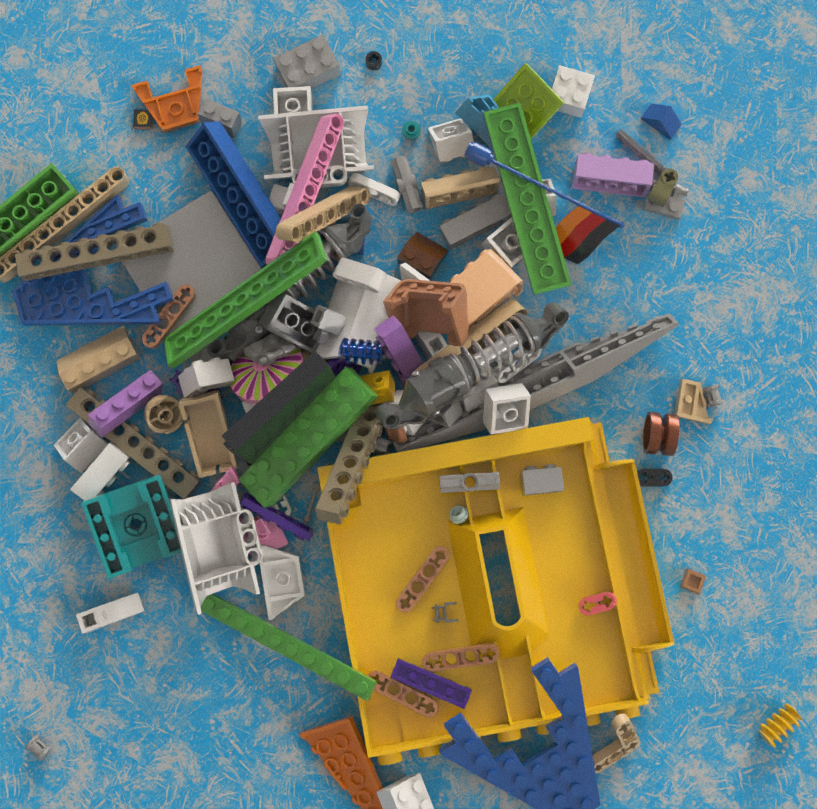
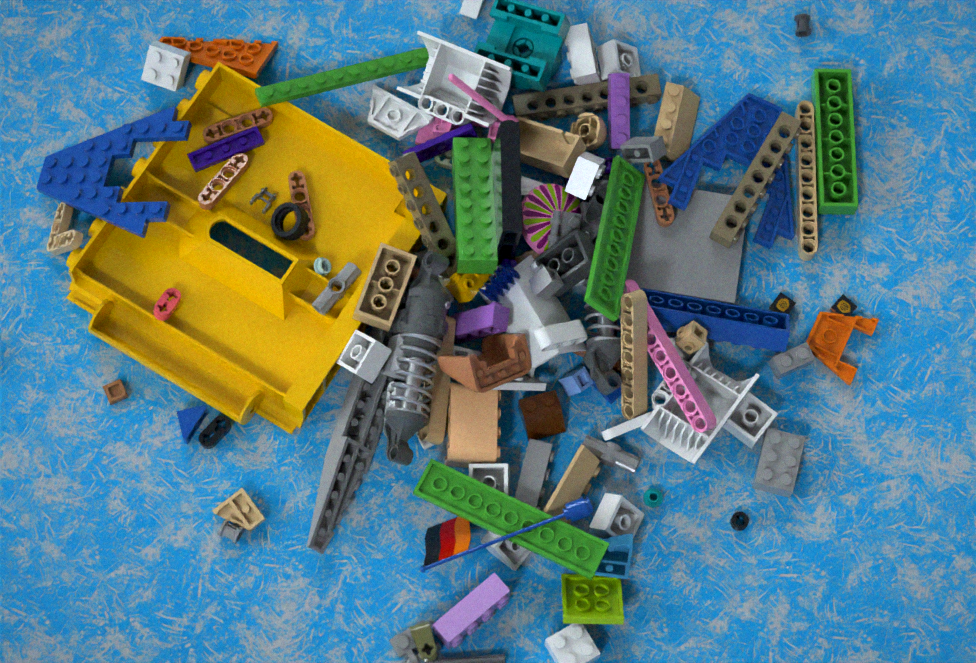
camera: 125 degrees right, 10 degrees down
(144, 353) = (643, 149): none -> light grey brick
(180, 162) = (782, 304): none -> black tile
(211, 478) = (481, 100): none -> bright pink piece
(271, 187) = (691, 337): none -> tan brick
(374, 253) = (576, 381): none -> light blue panel
(445, 427) = (379, 275): none -> tan brick
(459, 577) = (279, 216): none -> black tyre
(541, 481) = (289, 343): light grey brick -> none
(660, 433) = (240, 460): copper wheel -> none
(664, 502) = (190, 421): none -> blue slope

